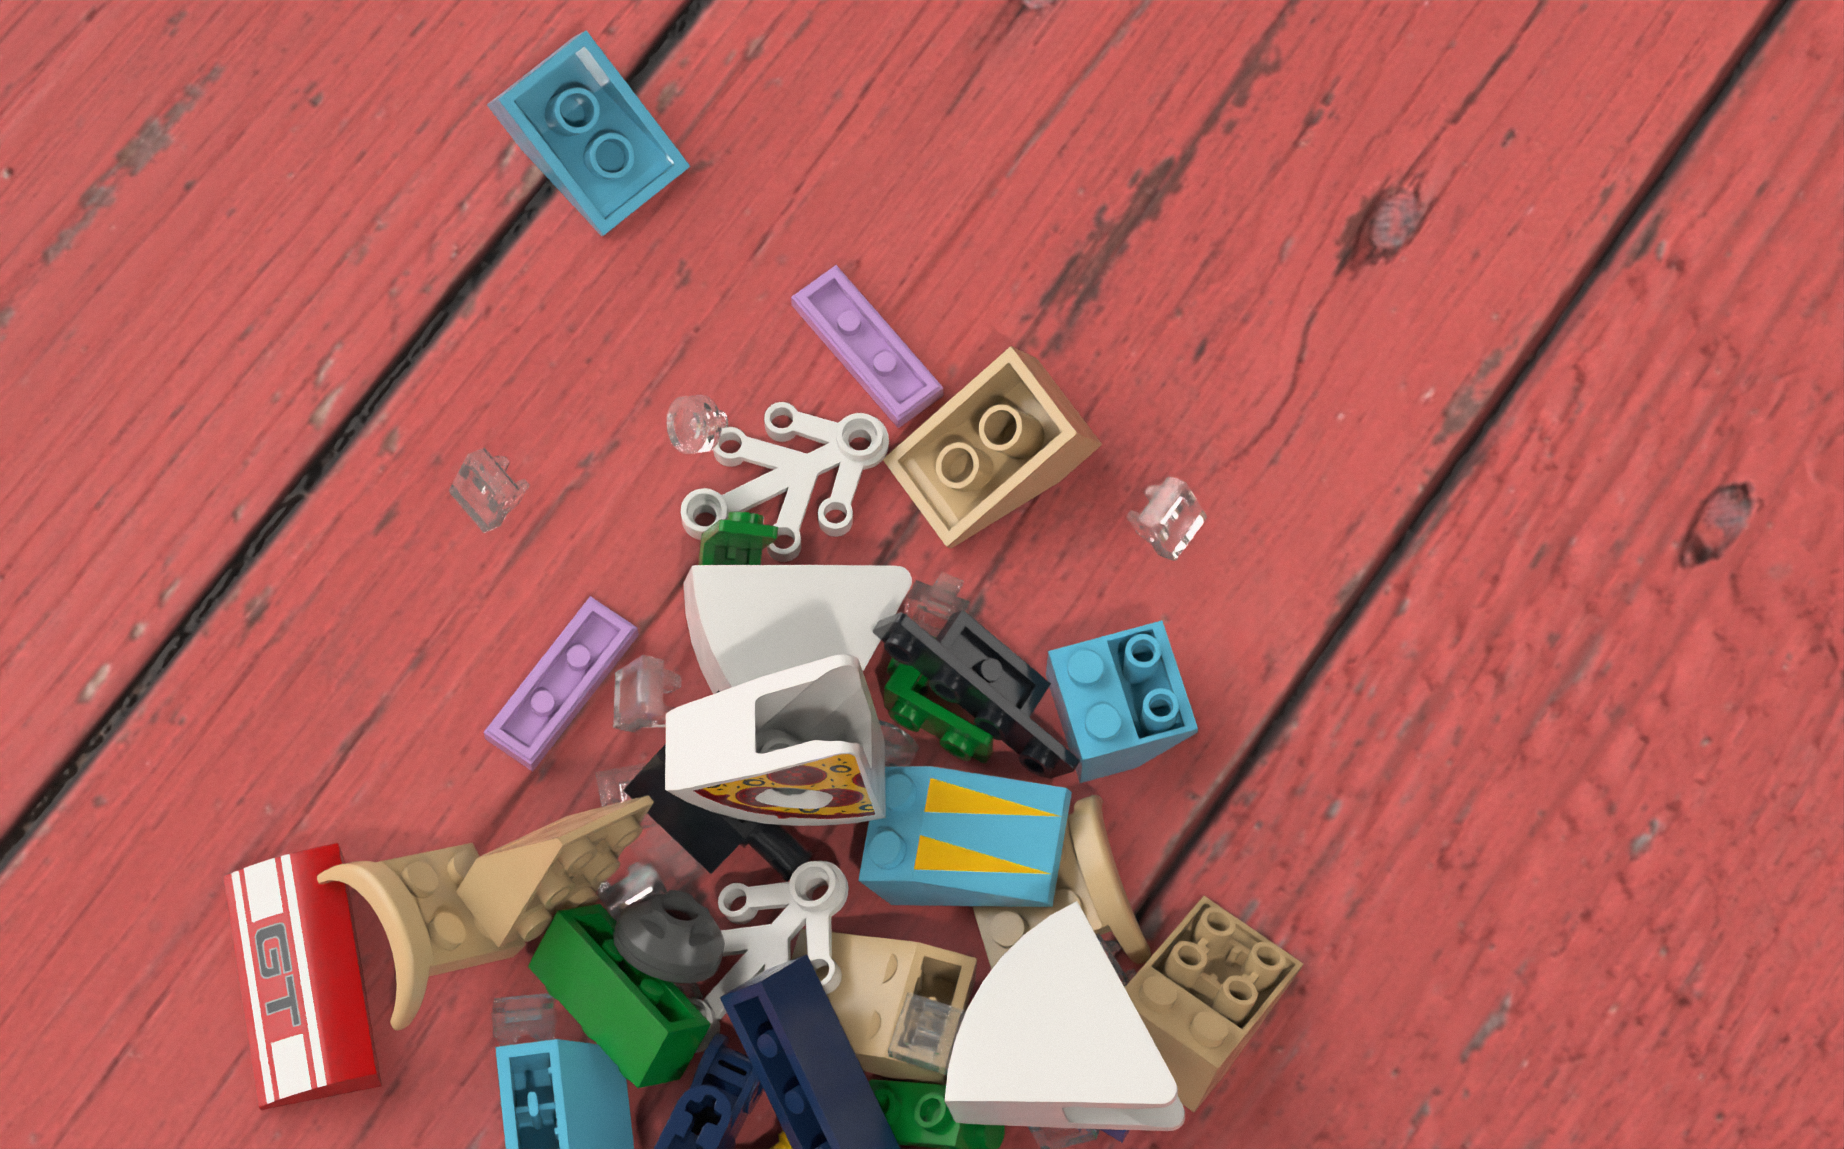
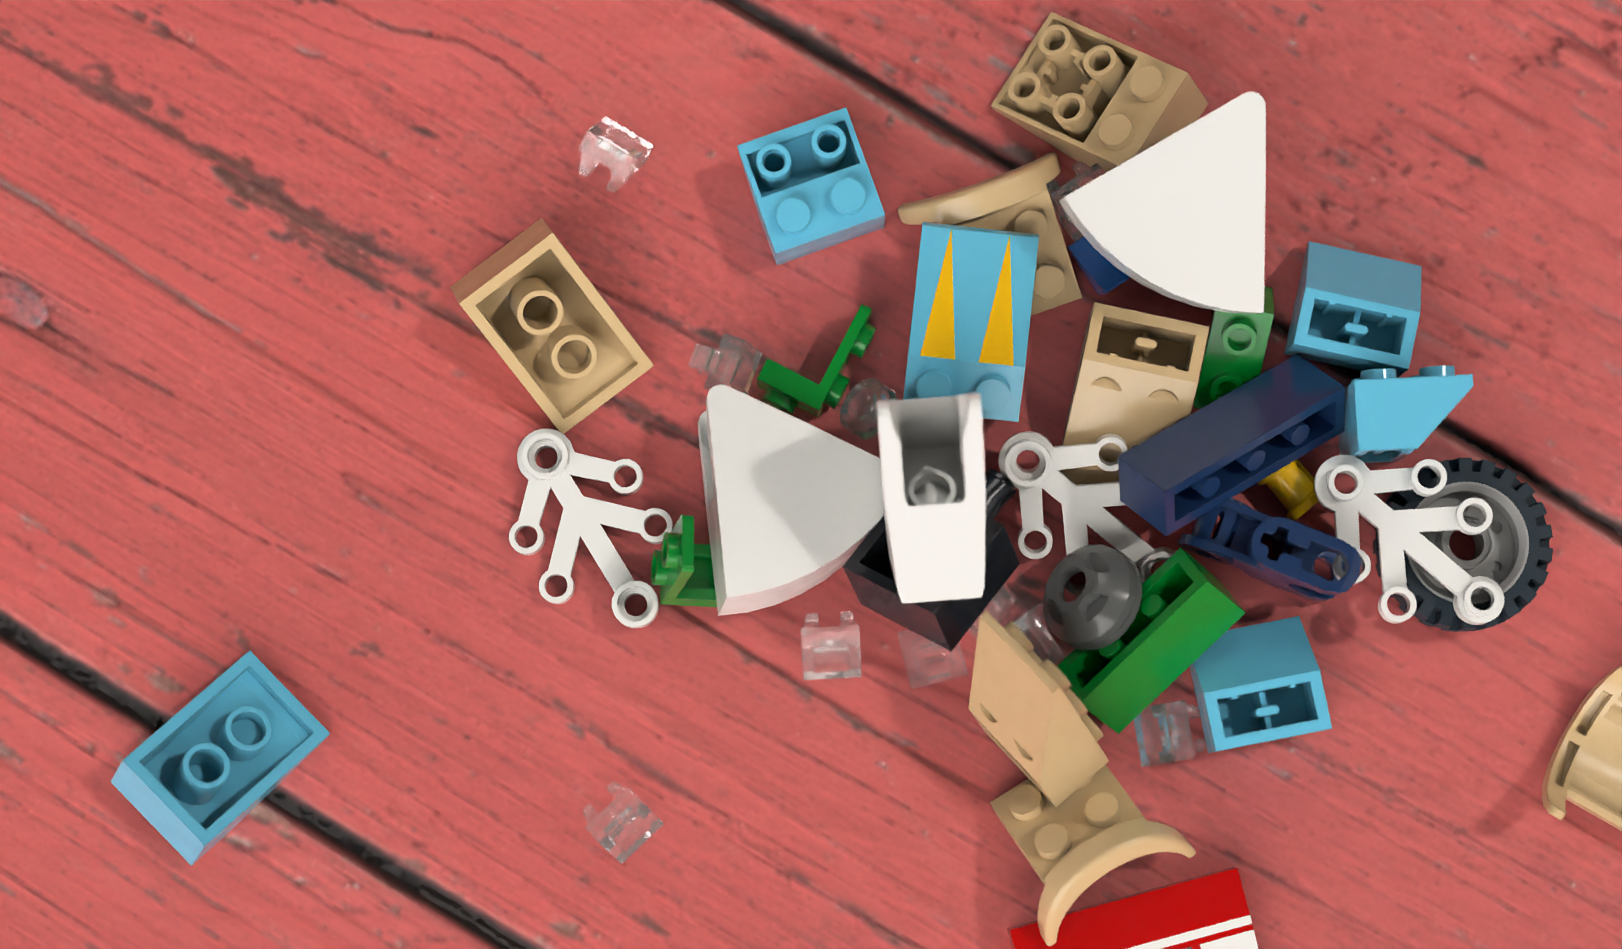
camera: 90 degrees left, 15 degrees up
(561, 683) = (817, 731): lavender tile -> none
(695, 424) = (540, 620): clear tile -> none
(867, 346) = (439, 458): lavender tile -> none
(926, 1033) = (1188, 337): clear tile -> none
(985, 679) = (804, 313): black bracket -> none

